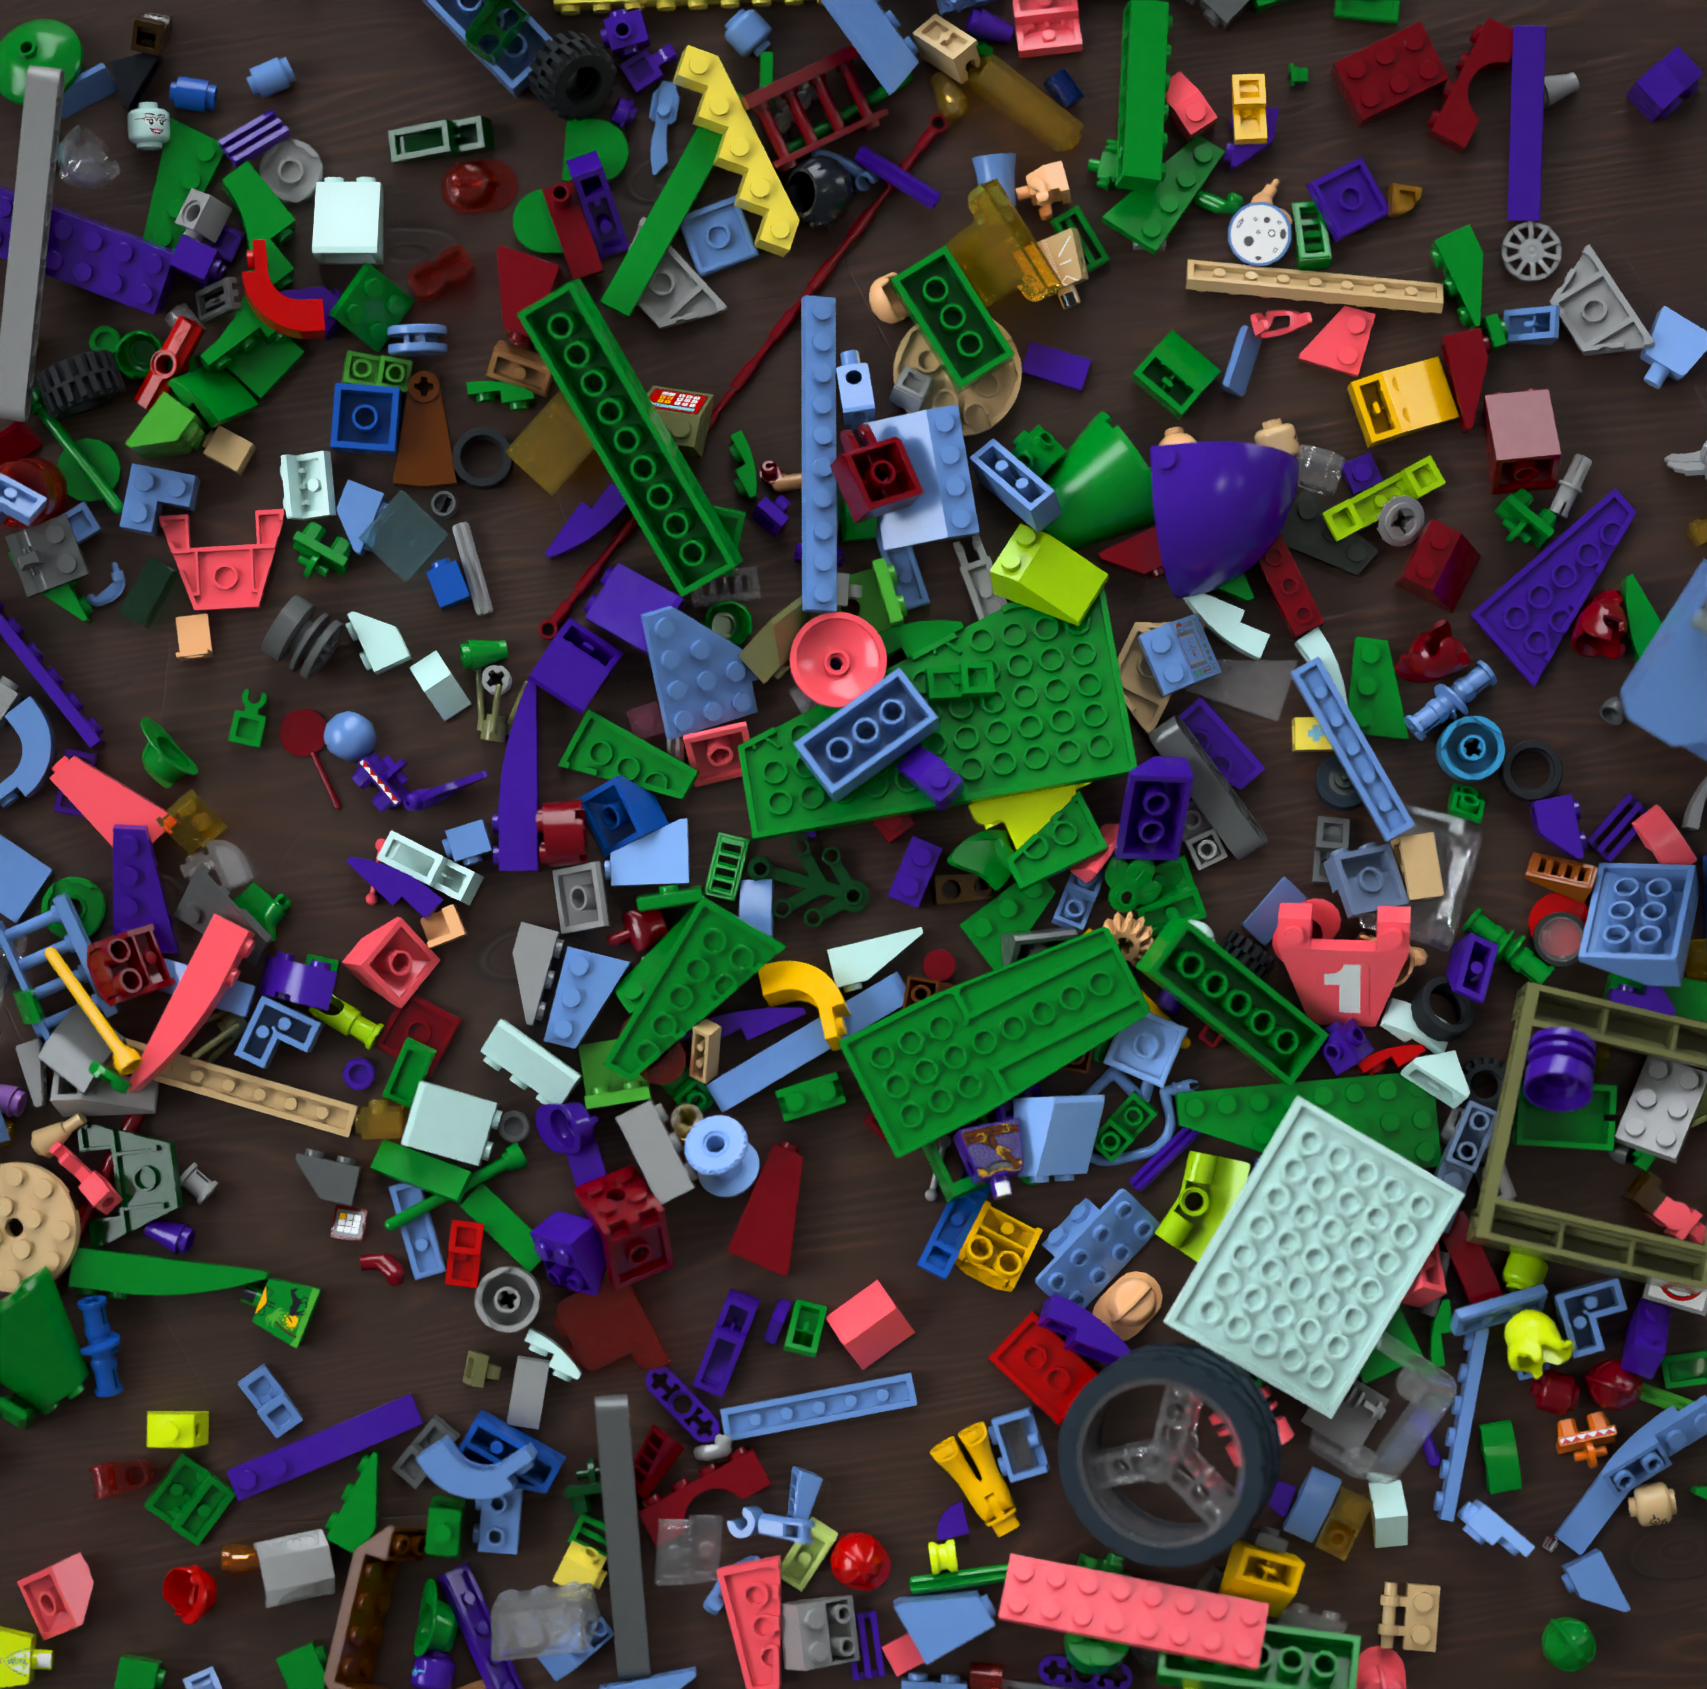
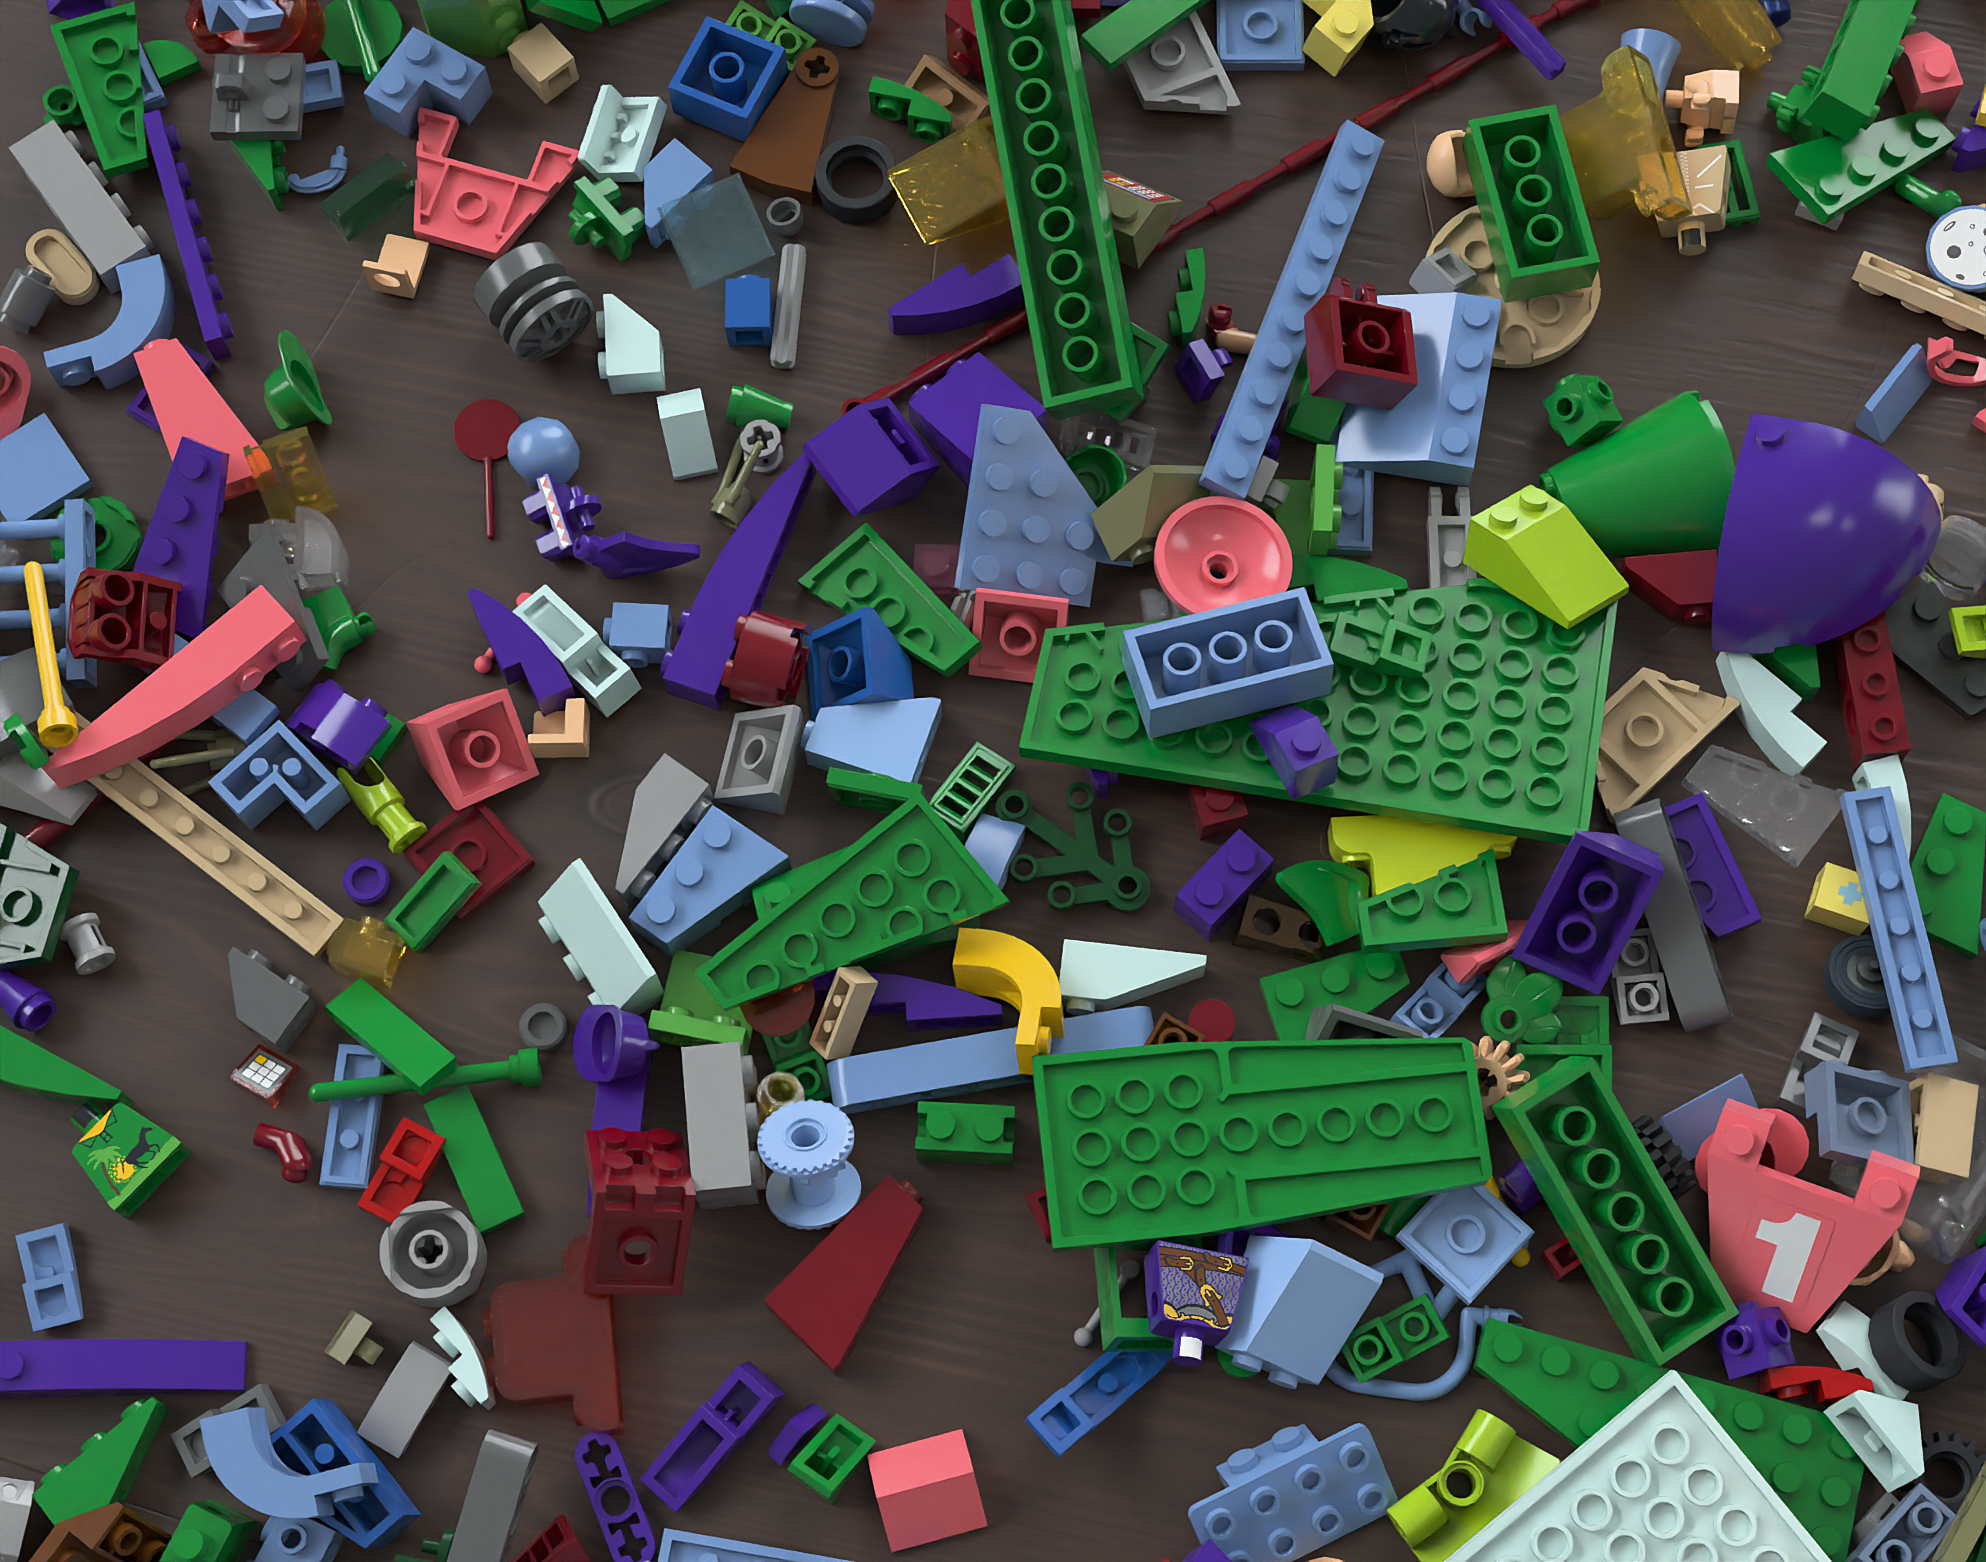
camera: 25 degrees right, 15 degrees down
(248, 725) = (422, 392): green plate -> none
(451, 1123) = (456, 984): light aqua slope -> none
(570, 1252) = (544, 1219): dark purple slope -> none
(641, 929) = (822, 828): dark red piece -> none
(855, 391) = (1371, 246): torso -> none
(997, 1248) = (1148, 1447): yellow slope -> none
(1015, 485) = (1543, 431): medium blue brick -> none
(1055, 366) = (1643, 320): dark purple tile -> none
(1163, 1159) = (1435, 1409): dark purple axle -> none
(1175, 374) = (1799, 376): green slope -> none
(1178, 655) = (1689, 723): medium blue slope -> none

